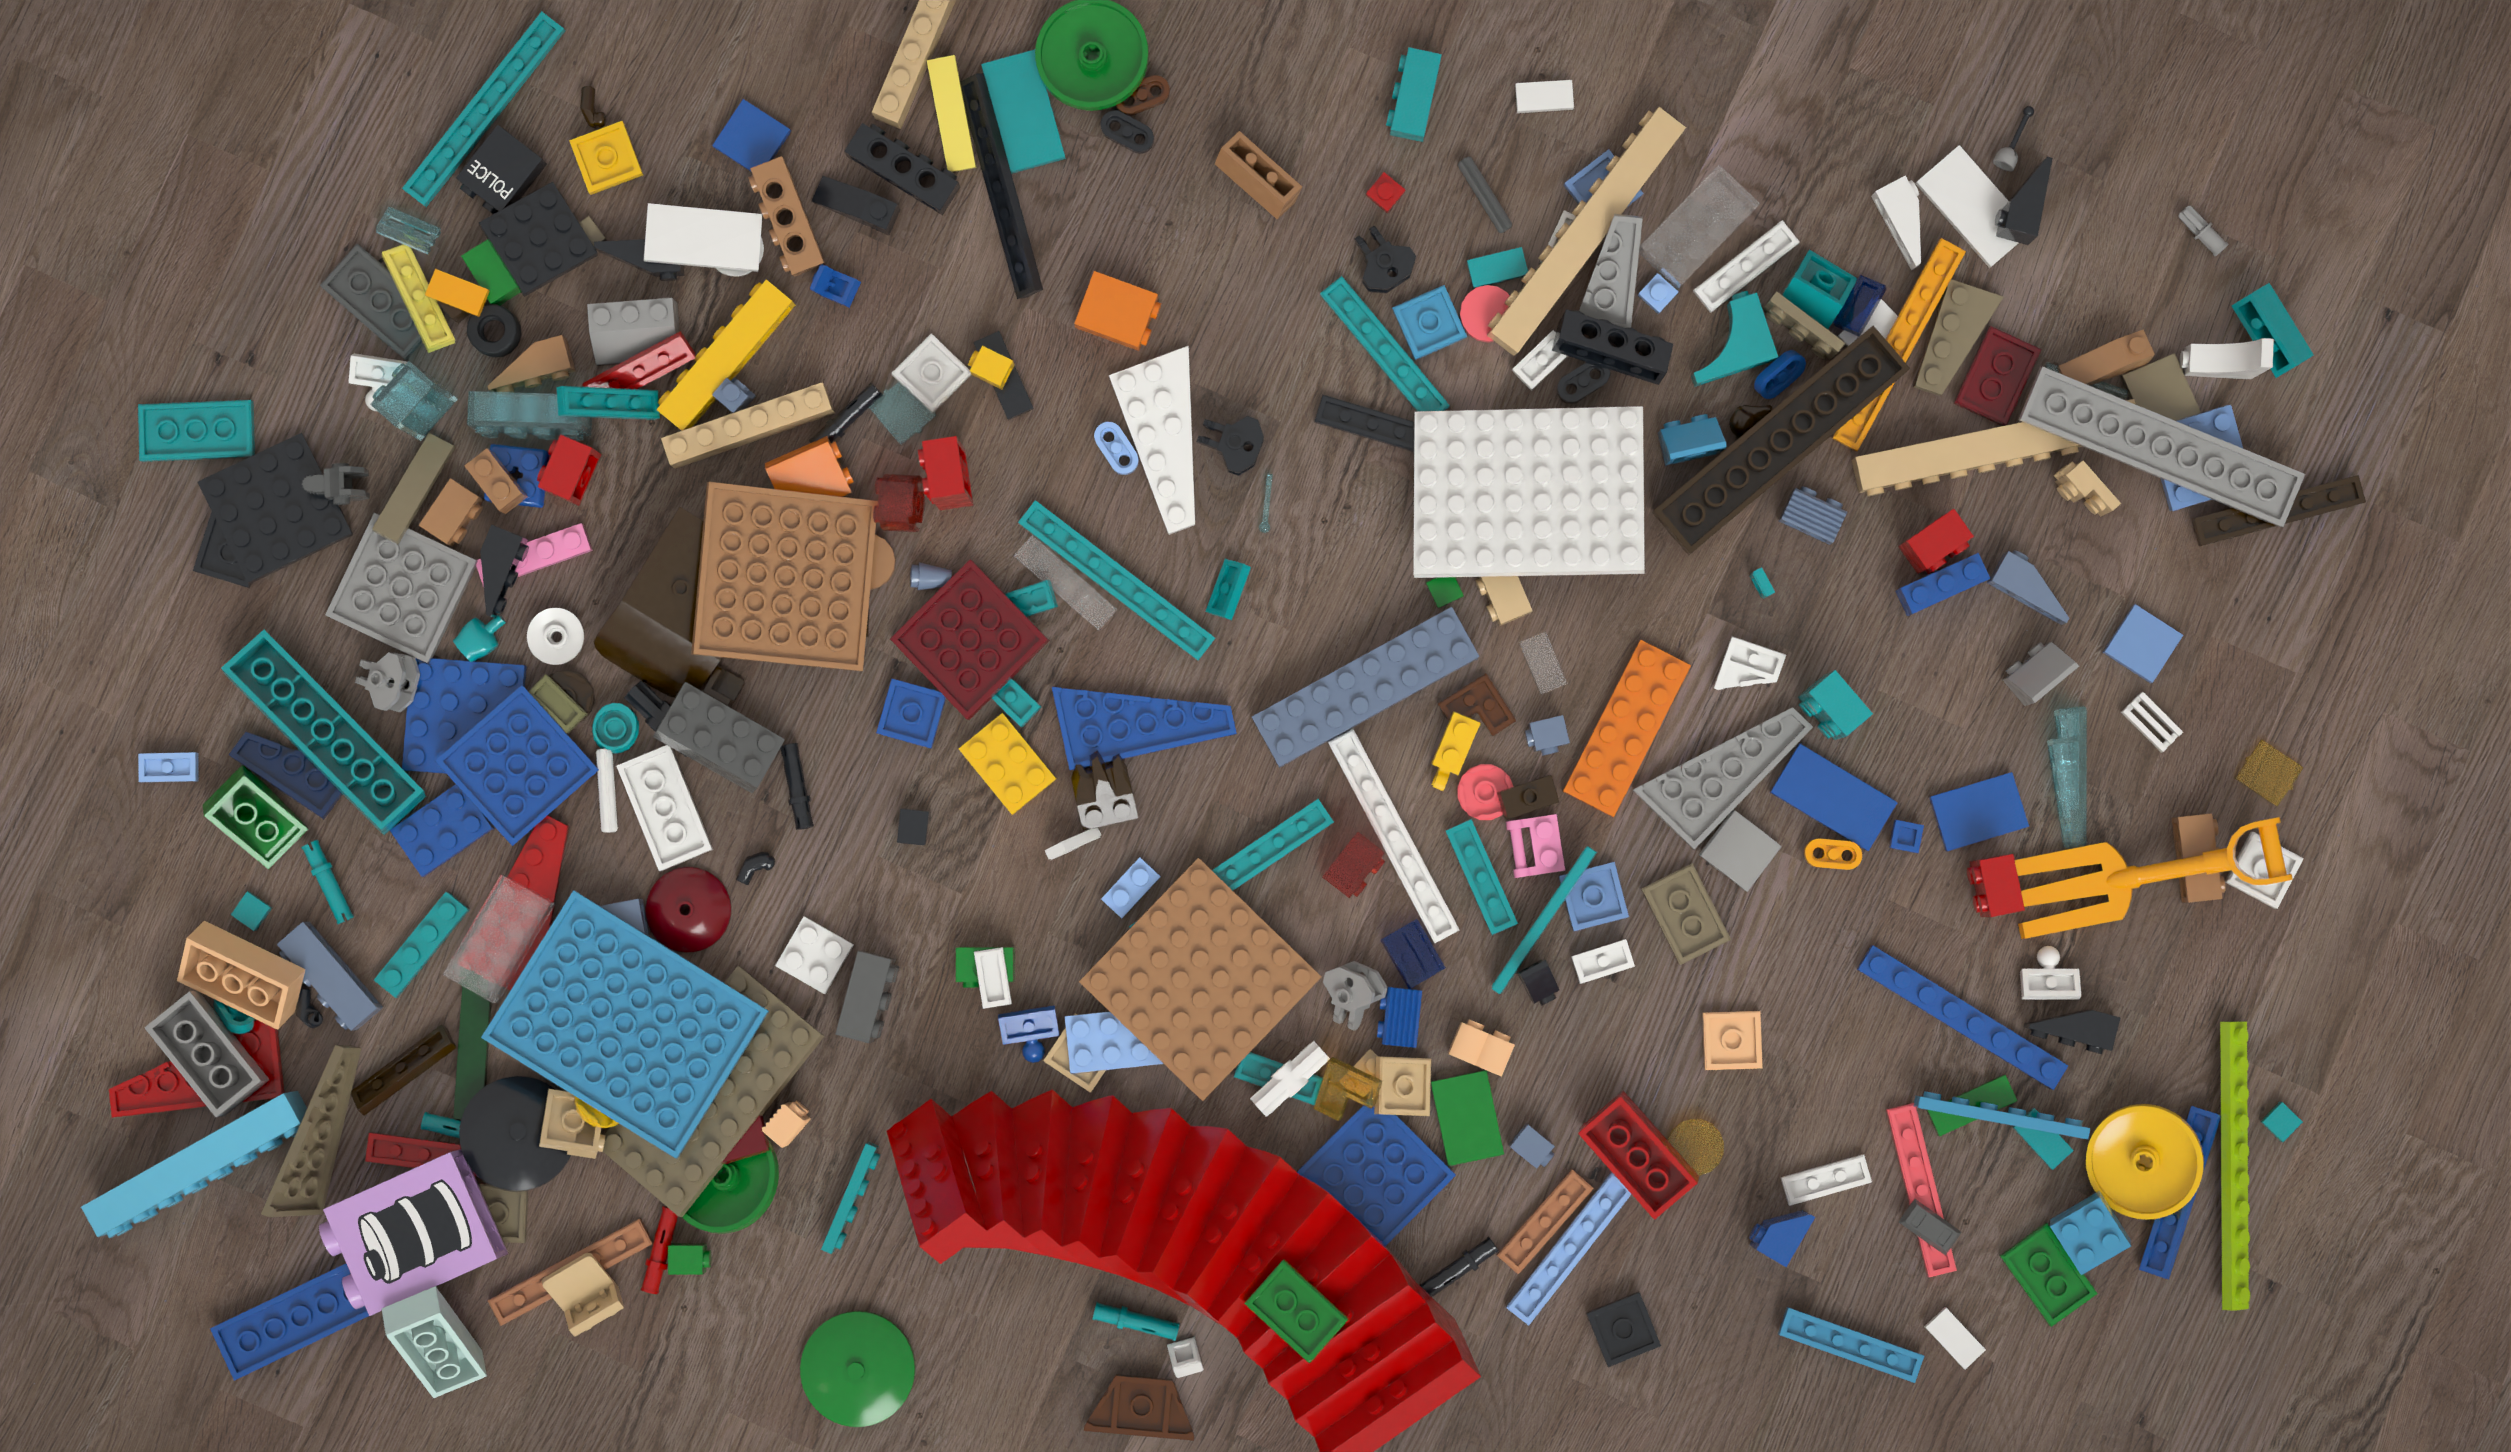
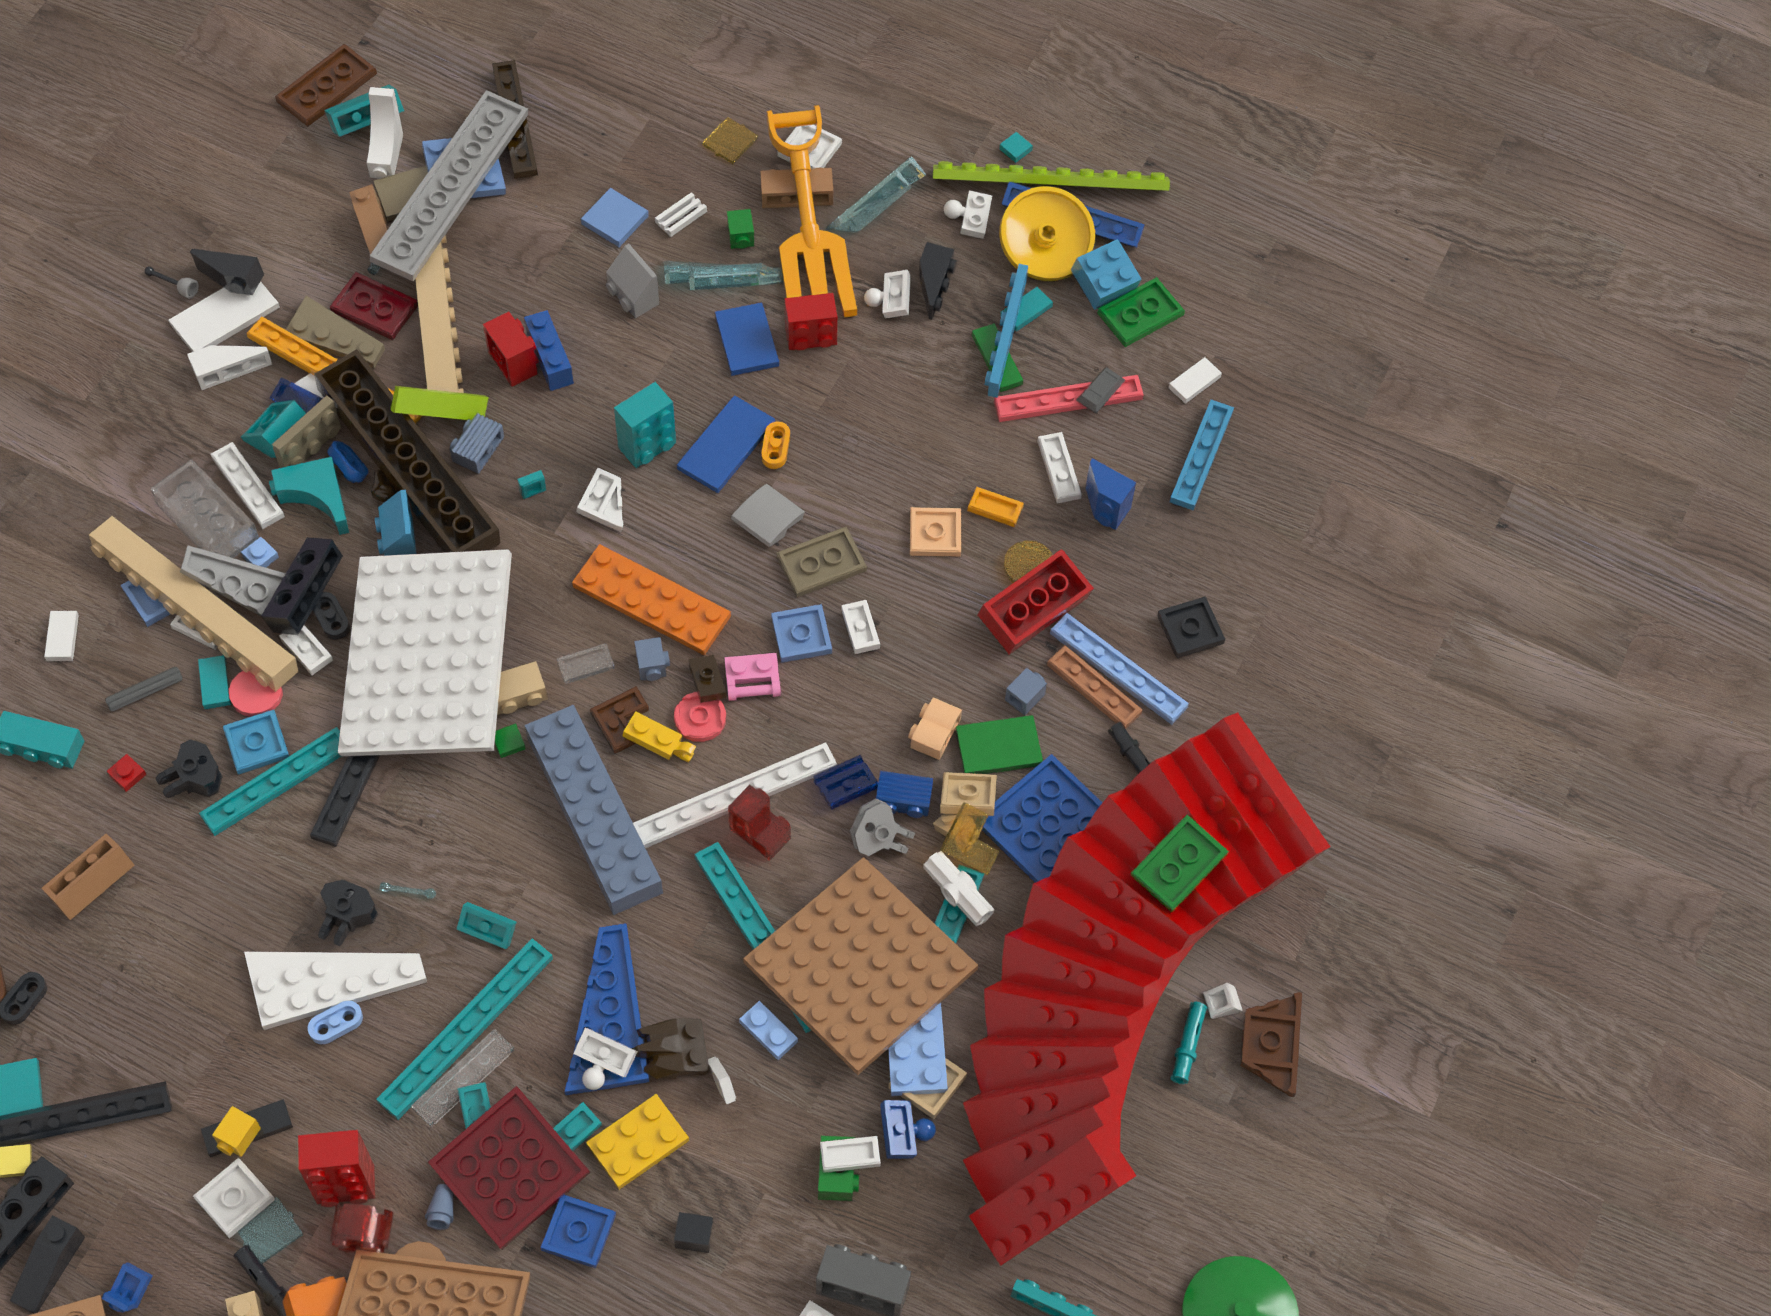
camera: 95 degrees left, 25 degrees down
(1087, 724) = (604, 1054): none -> white plate
(1117, 311) = (199, 1014): orange brick -> none
(1481, 877) = (777, 721): teal plate -> none
(1539, 982) = (875, 675): black slope -> none
(1544, 919) = (820, 668): teal tile -> none
(1708, 787) = (708, 534): light grey wing -> none
(1769, 1107) = (995, 506): none -> light orange tile
(1849, 470) = (438, 403): none -> lime tile
(1906, 836) = (764, 390): blue plate -> none
(1962, 1017) = (921, 361): blue plate -> none
(2024, 583) = (558, 289): sand blue slope -> none
(2081, 482) = (477, 239): tan plate -> none
(2130, 794) = (740, 228): none -> green brick
(2176, 1073) = (974, 213): none -> white plate
(2191, 956) = (878, 197): none -> clear light blue wedge
(2202, 230) = (273, 155): light grey axle -> none
(2317, 278) = (326, 85): none -> reddish brown tile

